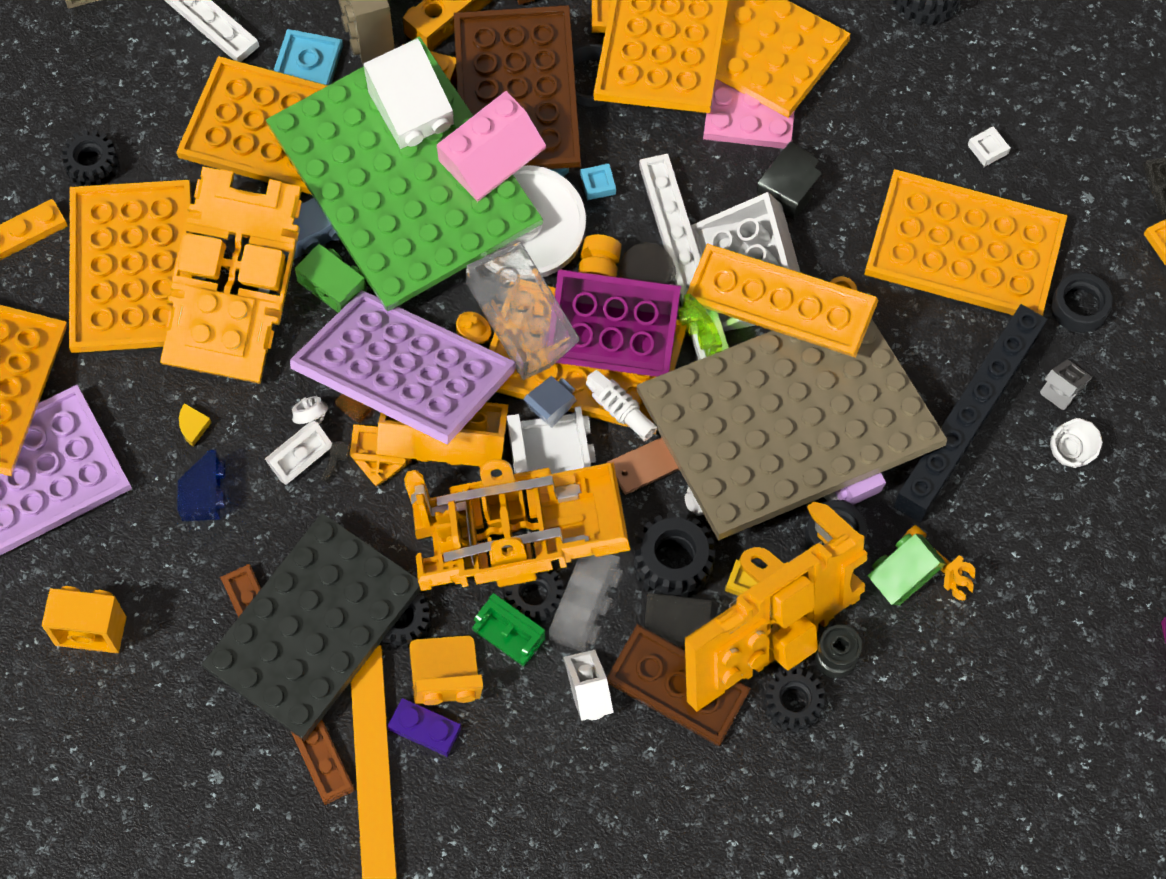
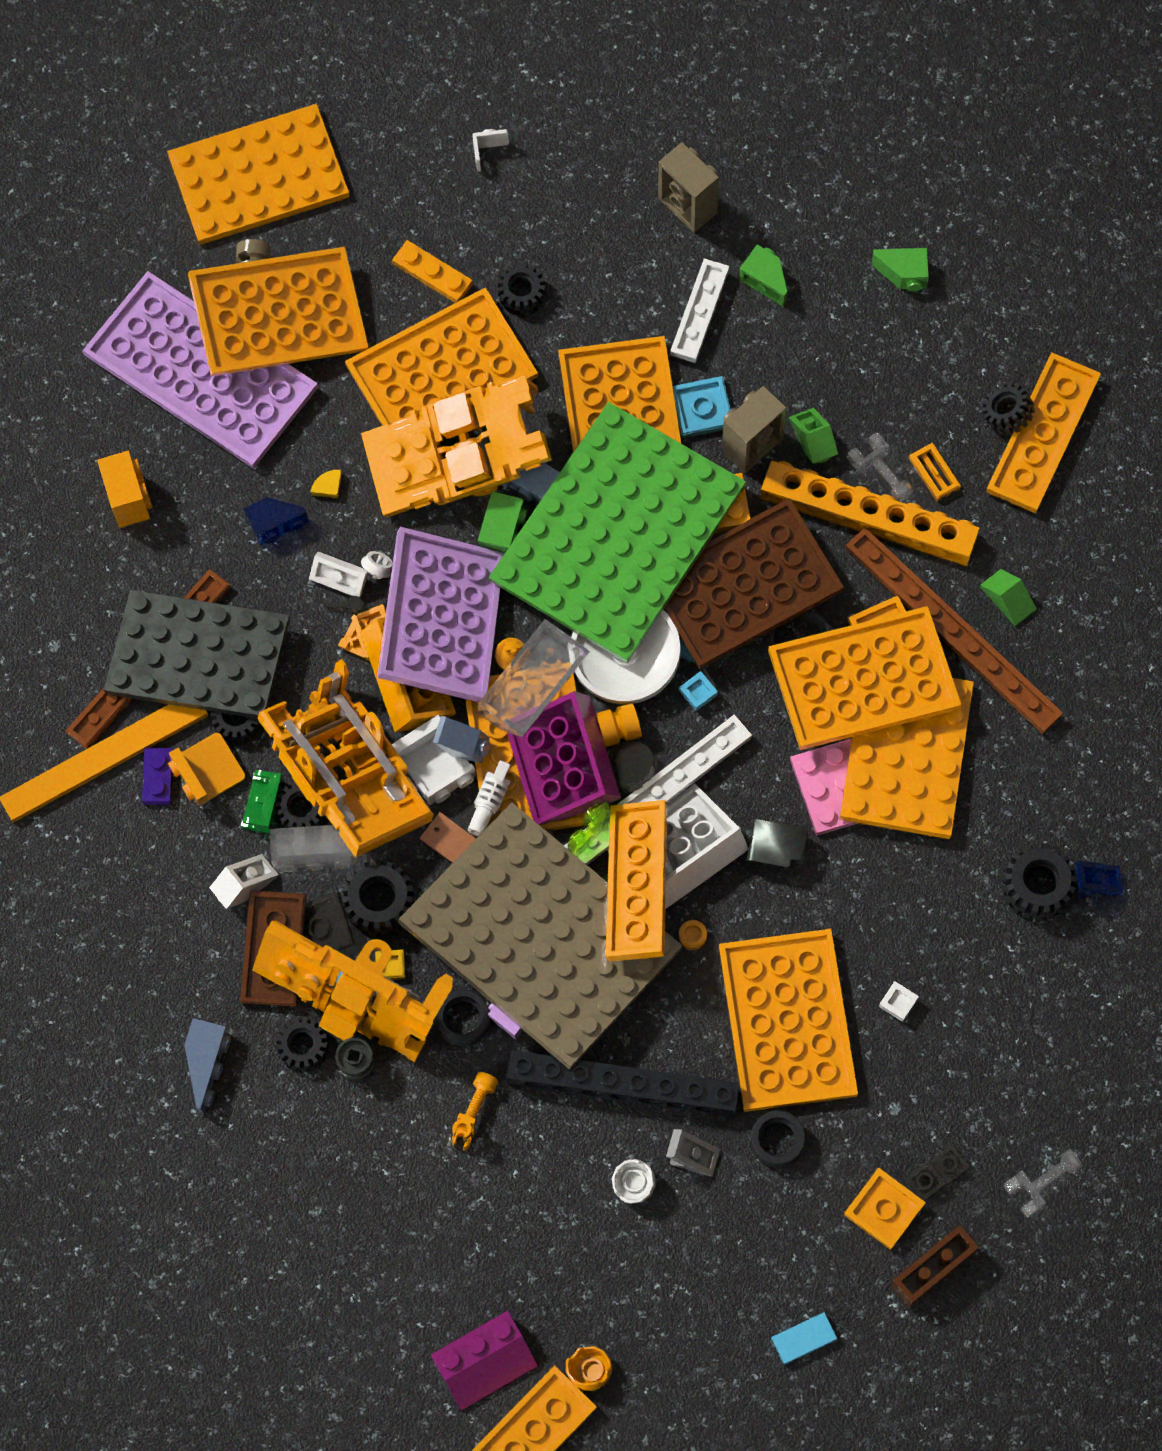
camera: 70 degrees right, 5 degrees up
(408, 94) = (671, 499): white slope -> none
(490, 146) = (662, 586): bright pink slope -> none
(763, 805) = (204, 1051): none -> sand blue slope
(906, 568) = (449, 1085): brick -> none

